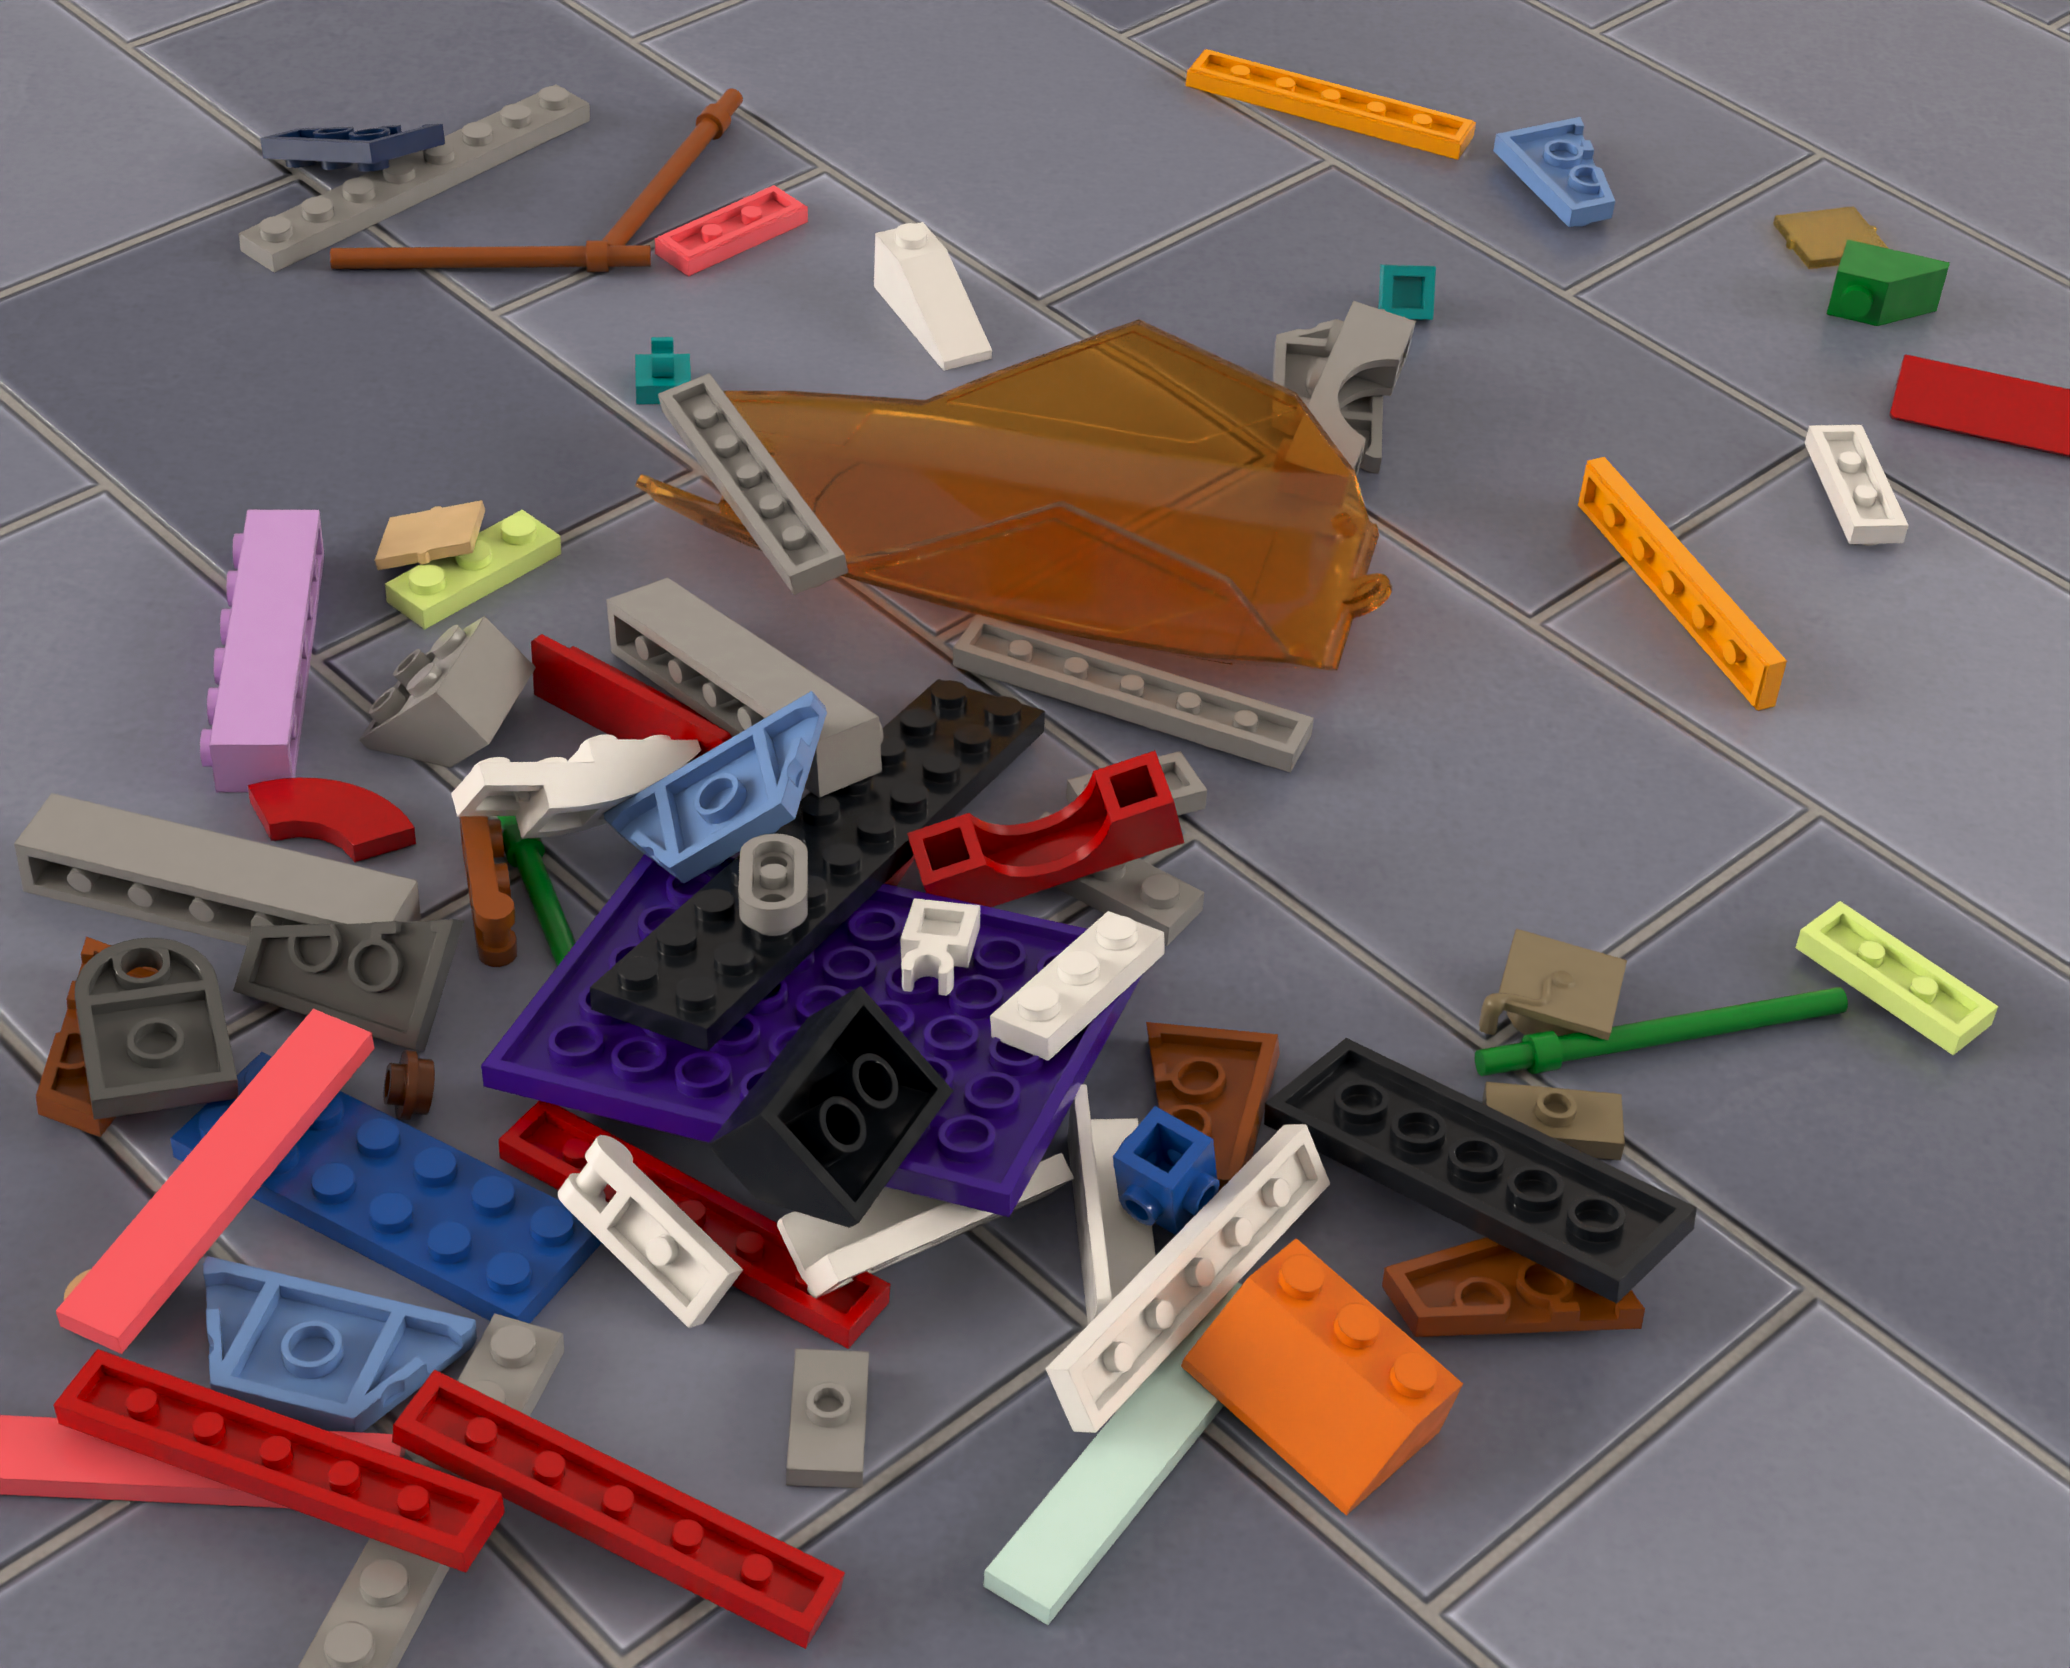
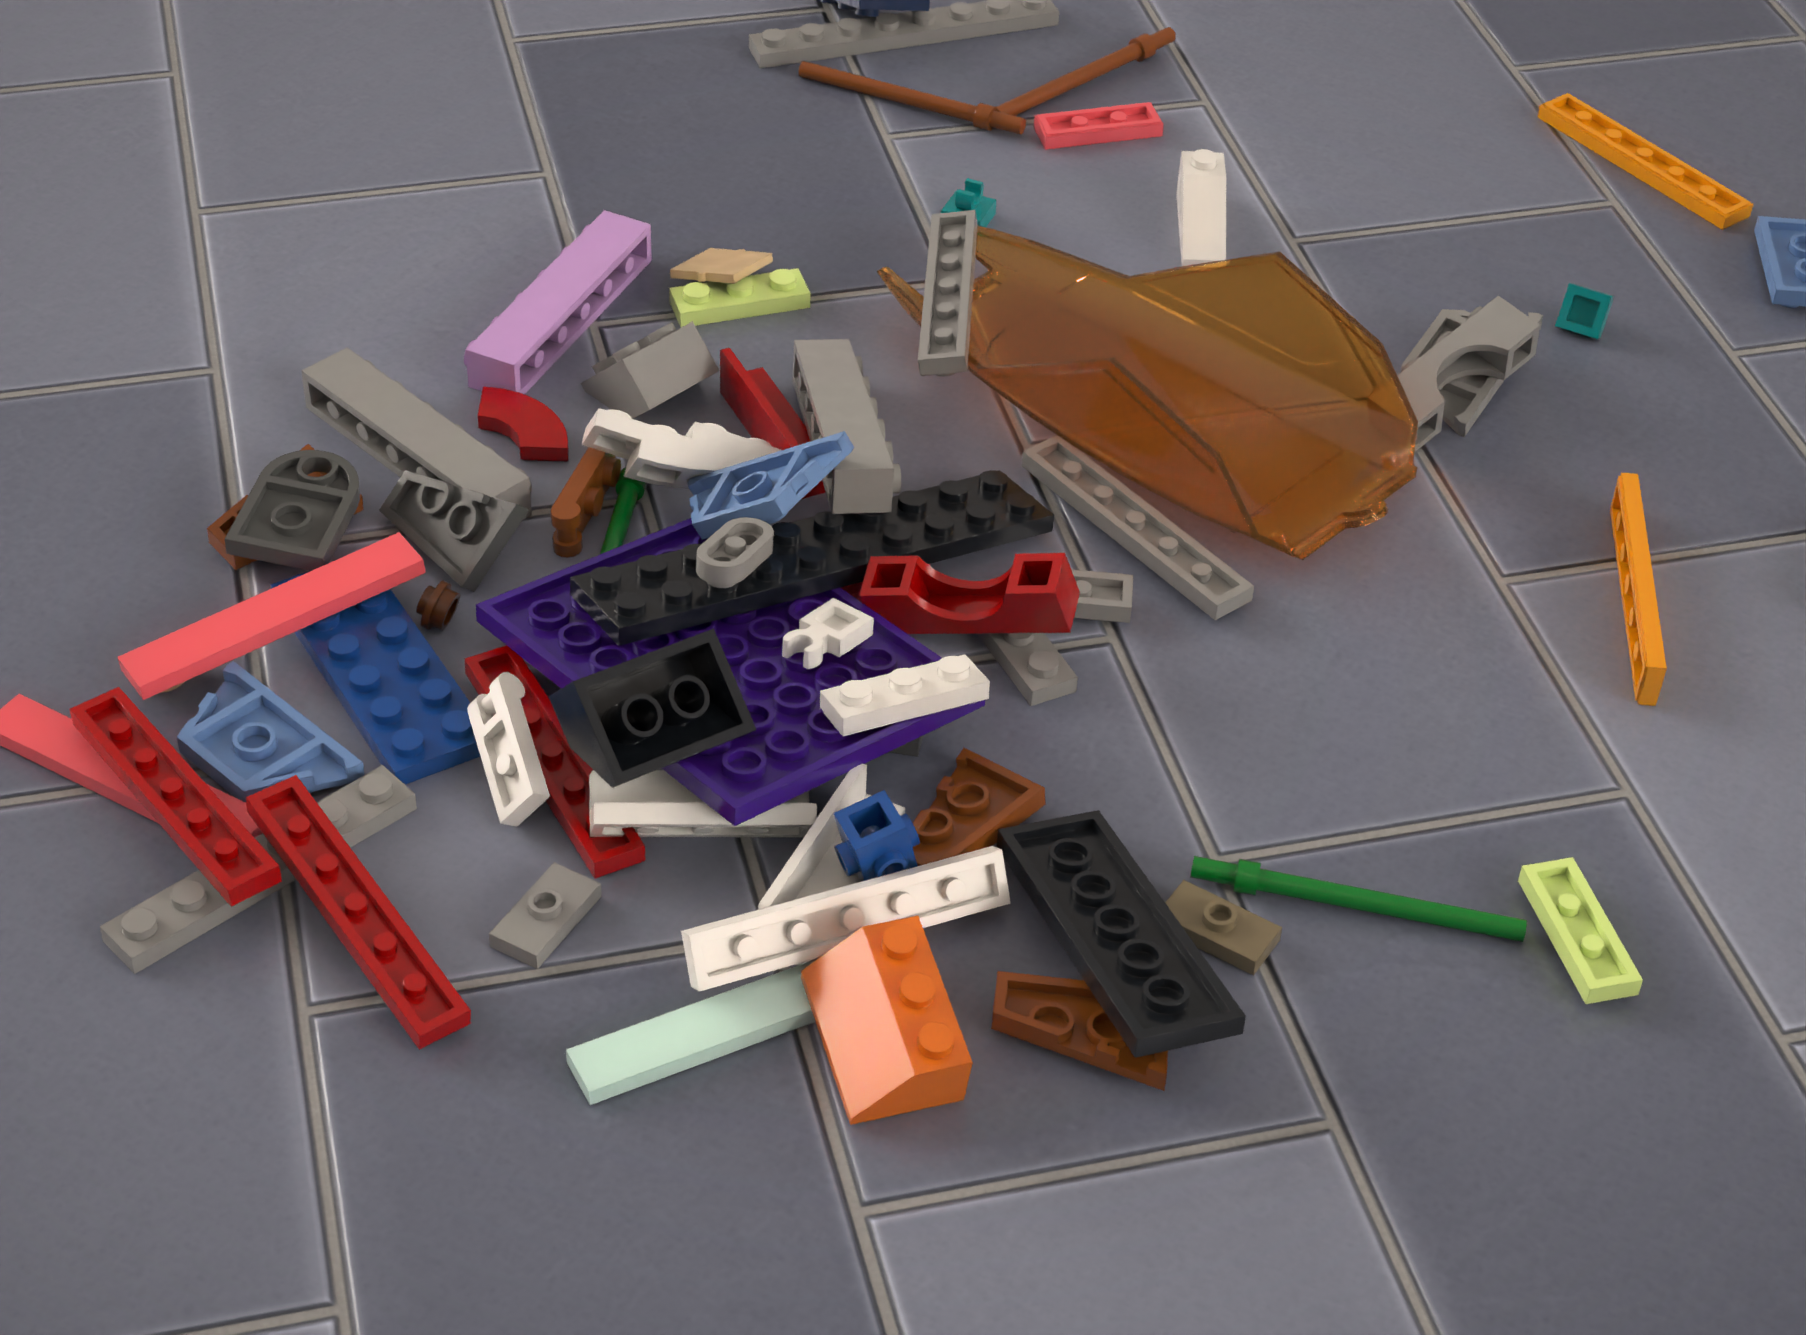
camera: 30 degrees right, 0 degrees up
(1555, 988) = (1289, 835): dark tan hat -> none

